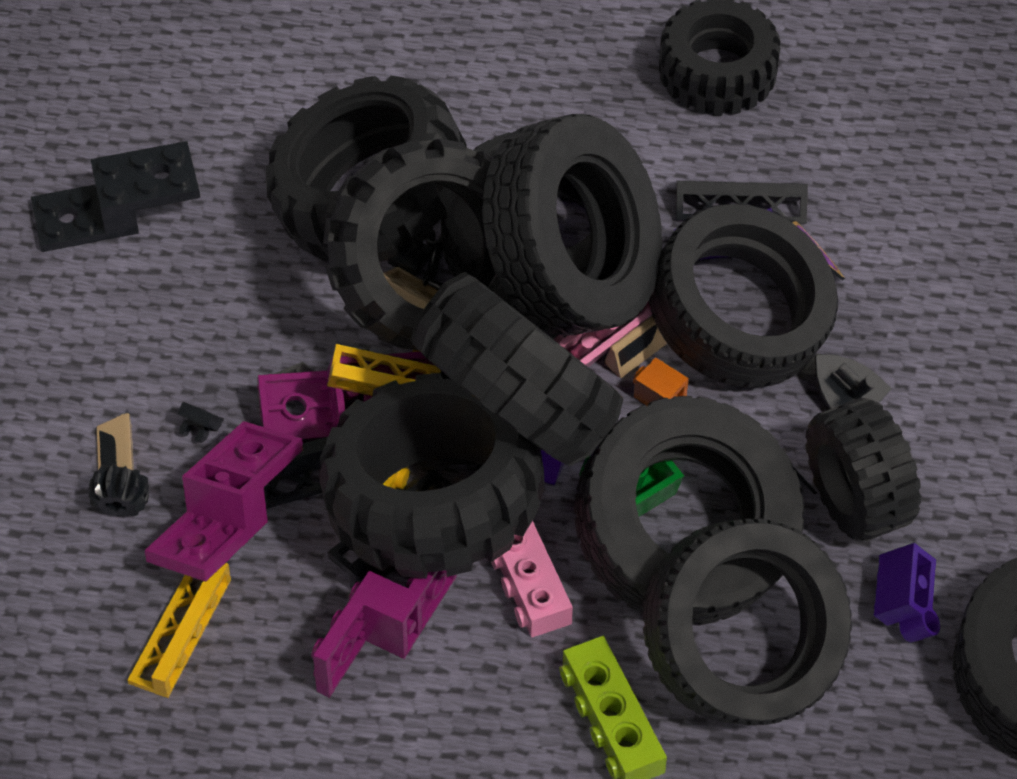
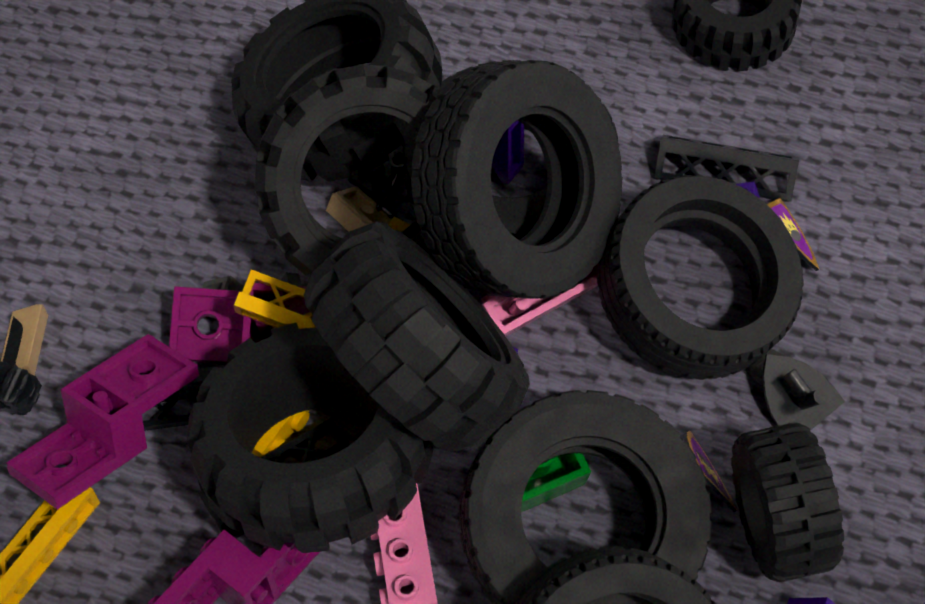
camera: 15 degrees right, 5 degrees up
(121, 186) = (95, 68): black bracket -> none
(200, 418) = (113, 319): black tile -> none
(634, 348) = (574, 314): tan slope -> none
(658, 382) = (593, 361): orange brick -> none

